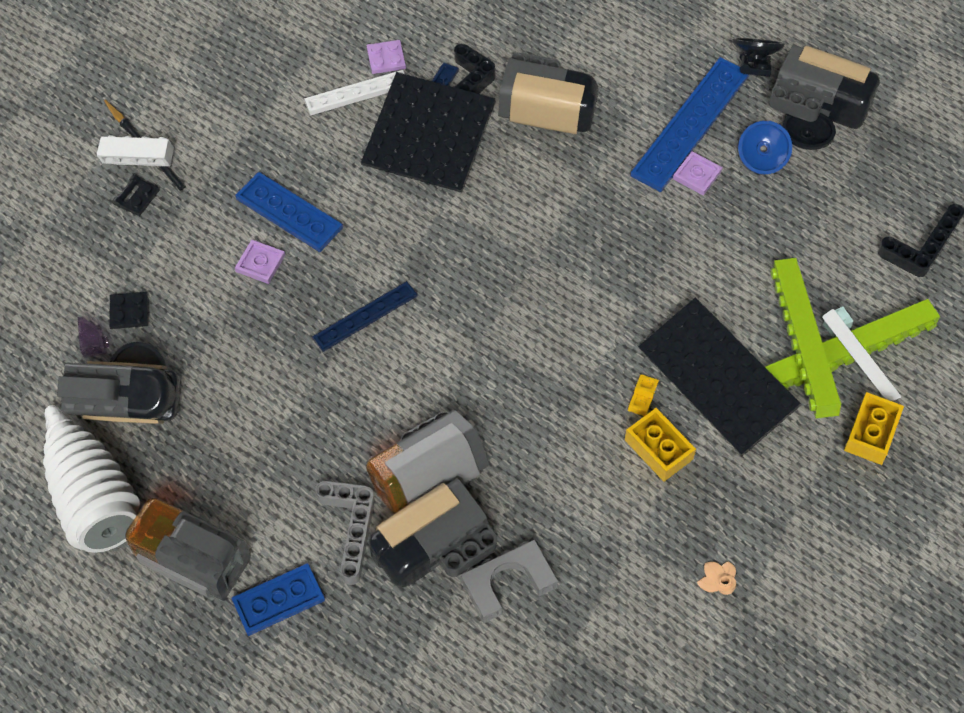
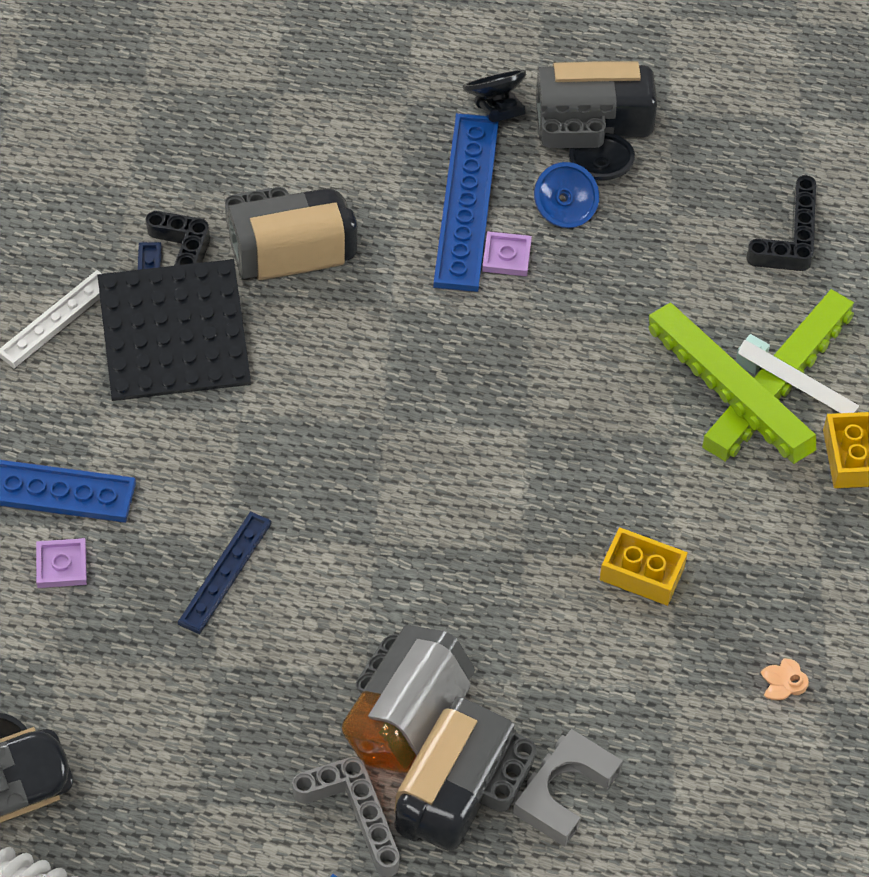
camera: 30 degrees left, 5 degrees down
(386, 56) = (64, 263): lavender plate -> none
(643, 395) = (591, 522): yellow slope -> none
(719, 376) = (661, 465): black plate -> none

